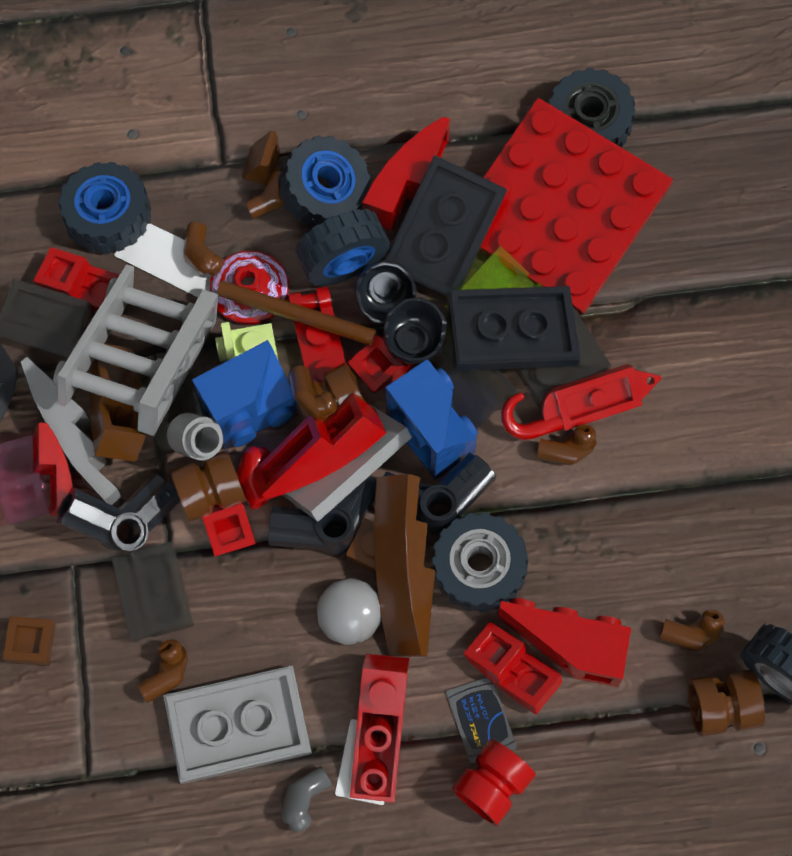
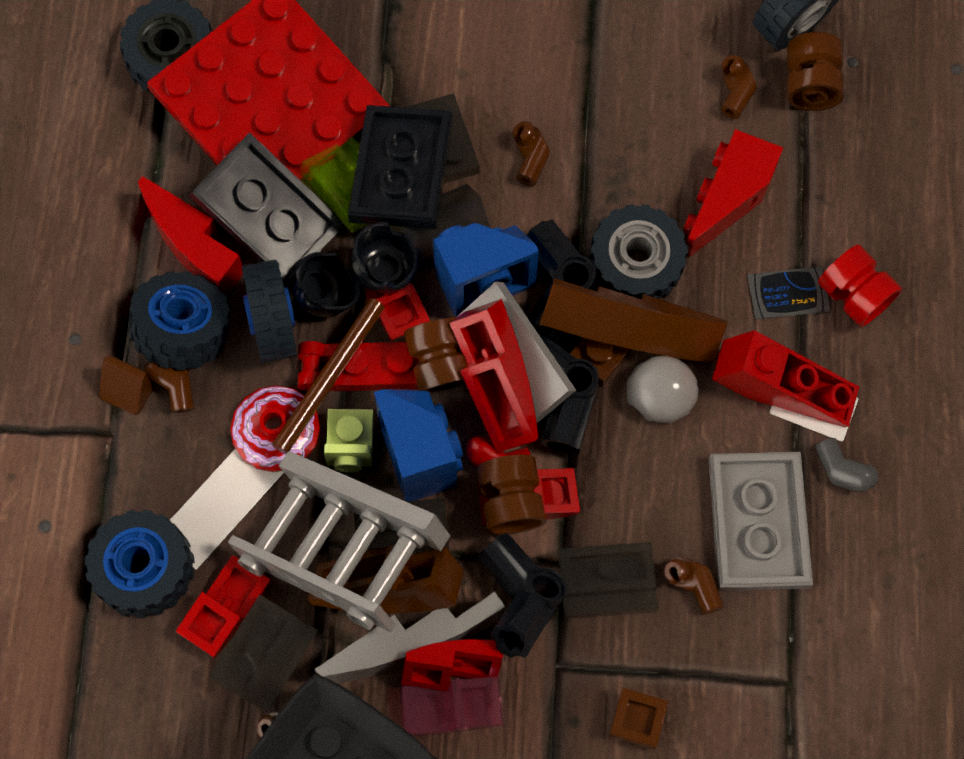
camera: 80 degrees left, 0 degrees up
(195, 436) = (461, 491): light grey brick -> none
(196, 252) = (225, 472): reddish brown arm -> none
(303, 393) = (441, 369): reddish brown arm -> none
(512, 669) = (747, 251): red slope -> none
(582, 401) = (488, 126): red plate -> none

